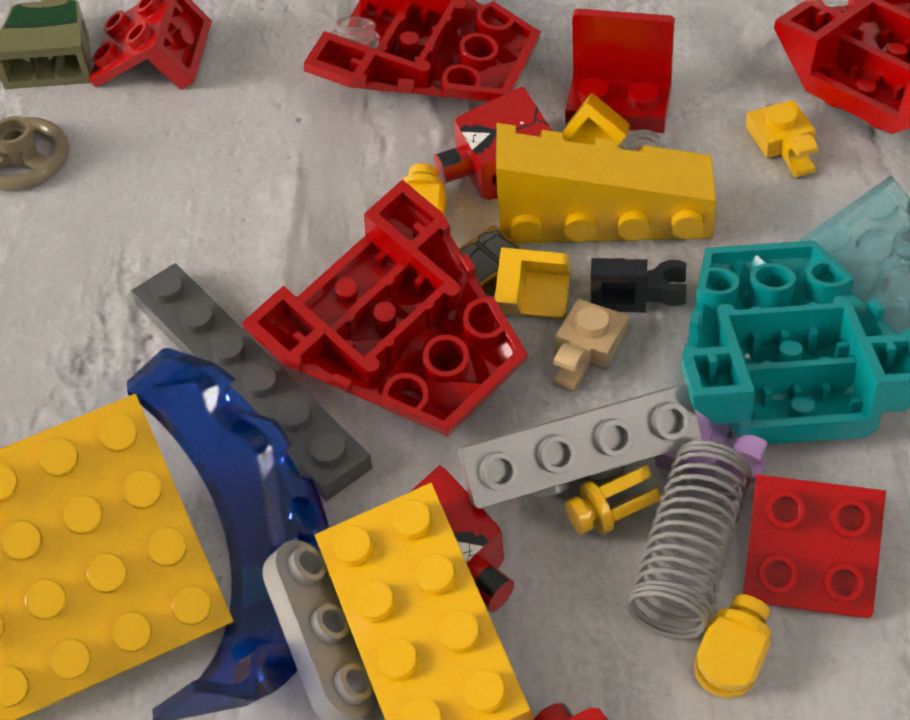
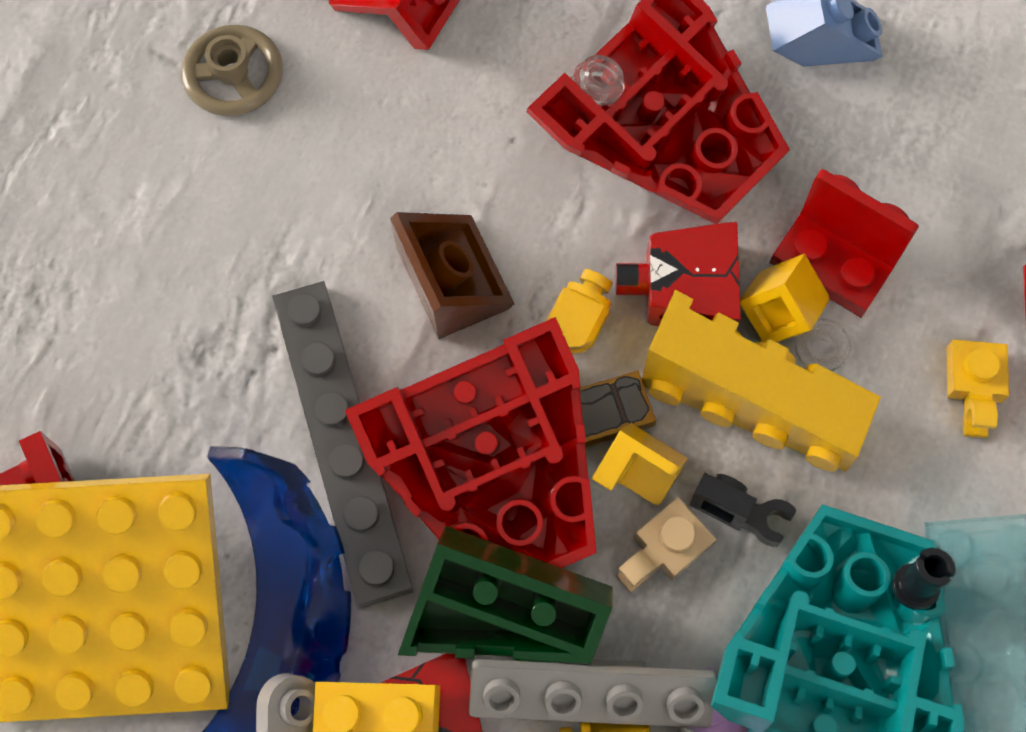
camera: 20 degrees right, 20 degrees up
(283, 218) = (450, 269): none -> reddish brown slope
(456, 400) = (505, 604): none -> dark green wedge
(819, 258) = (919, 583): none -> black pin

